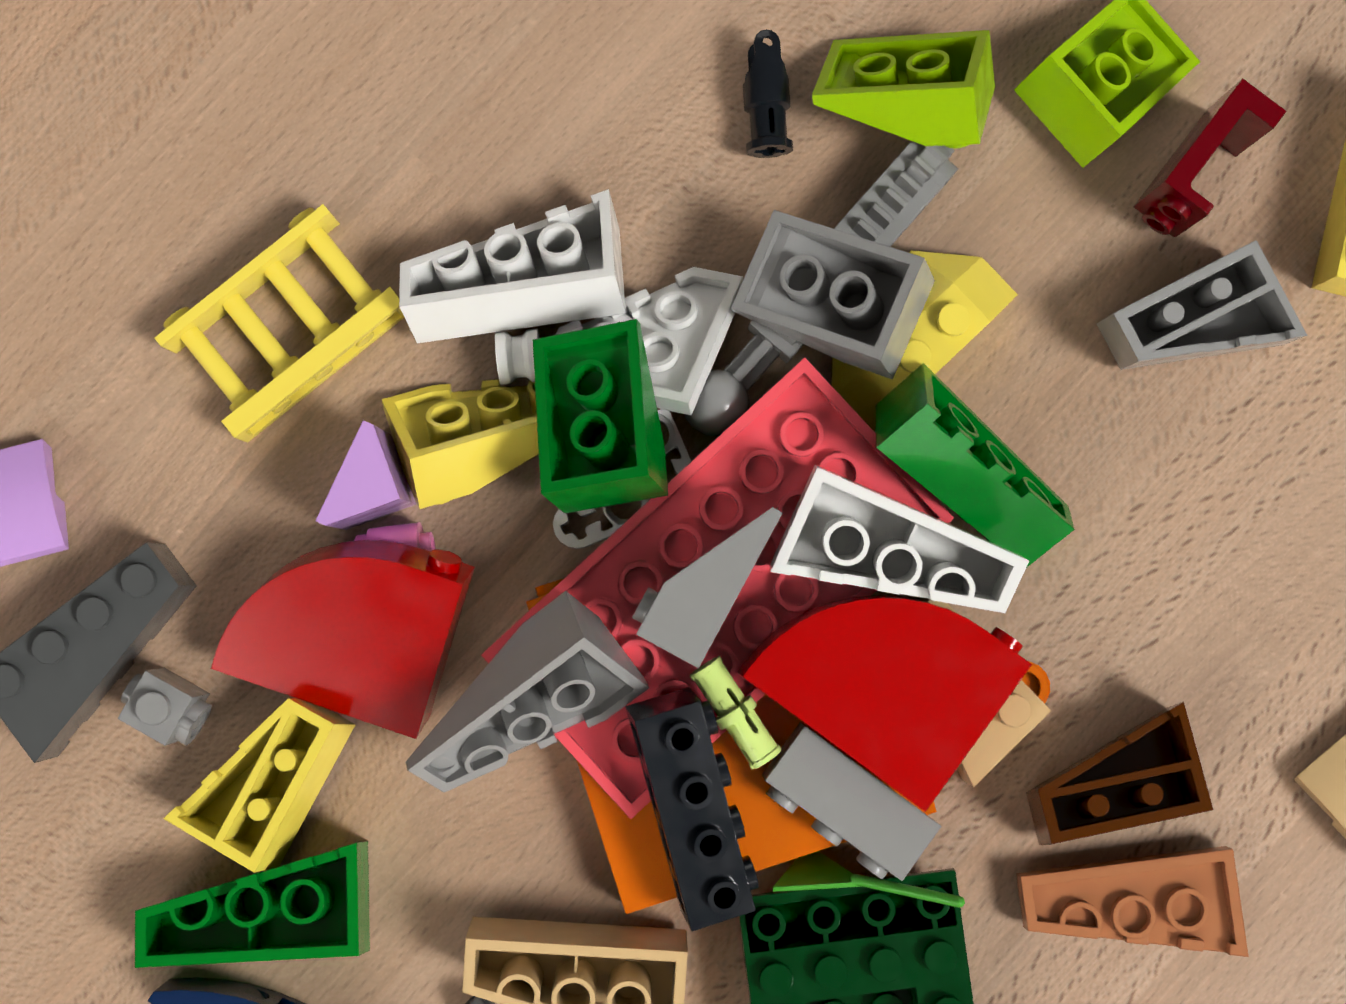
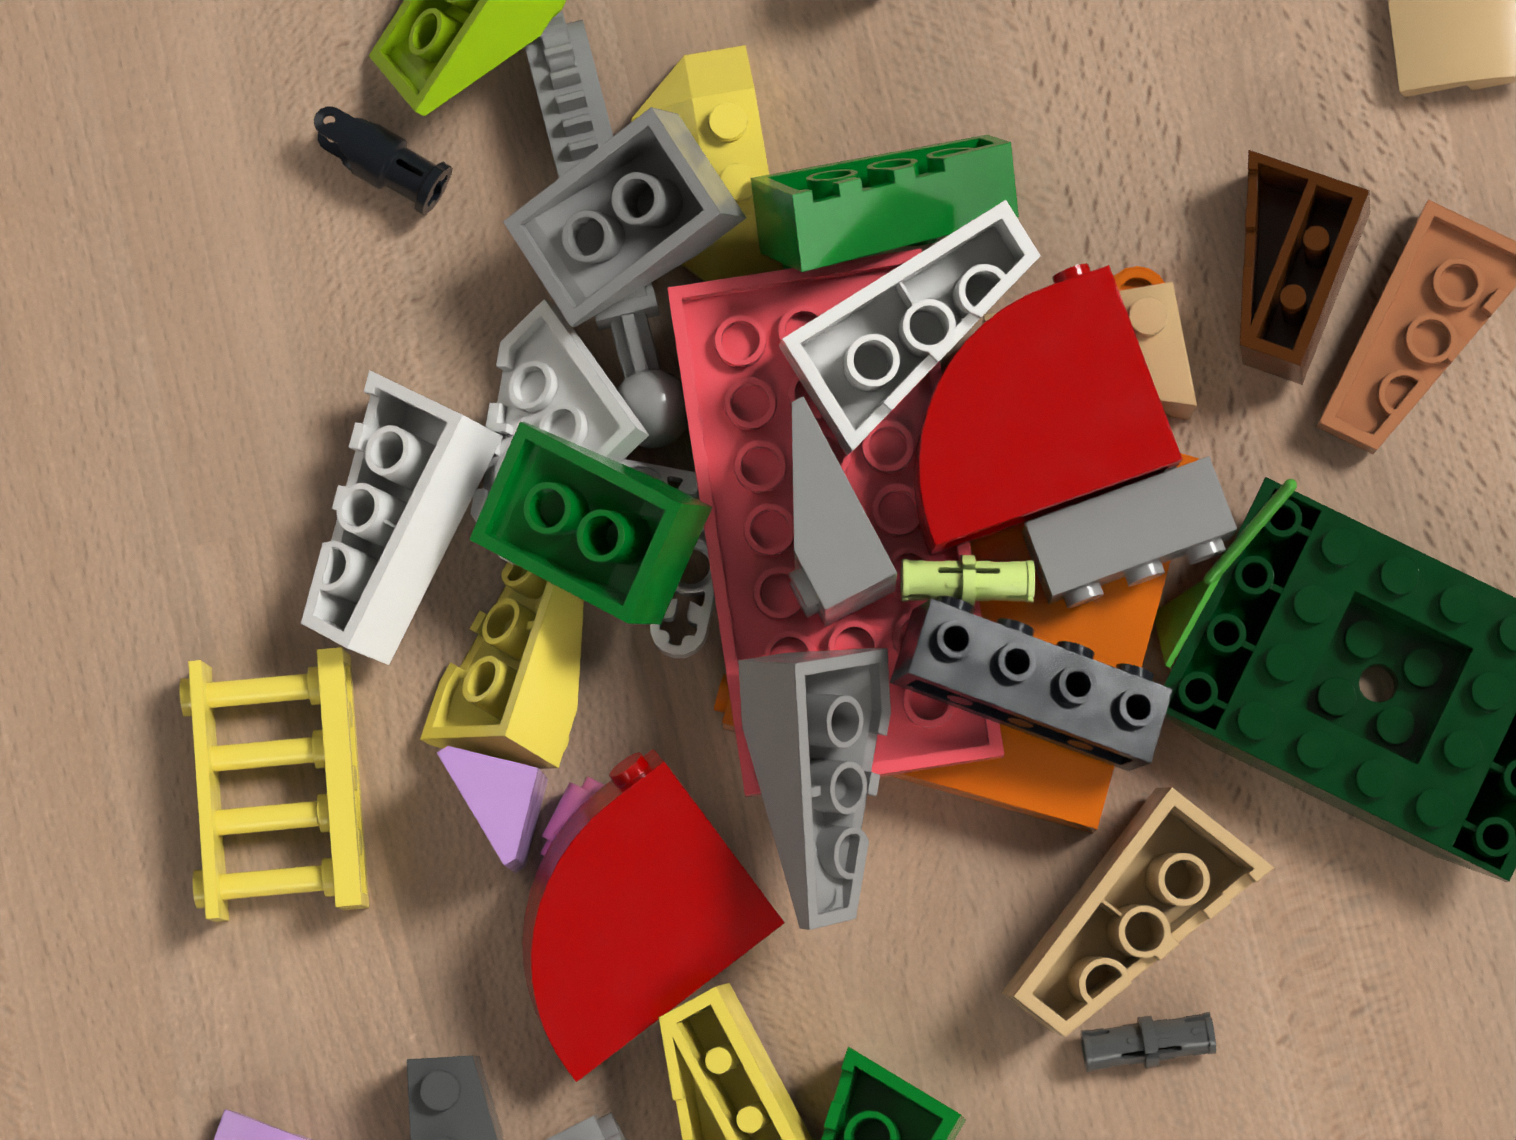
camera: 40 degrees left, 5 degrees down
(515, 355) = (472, 572): white wheel -> none

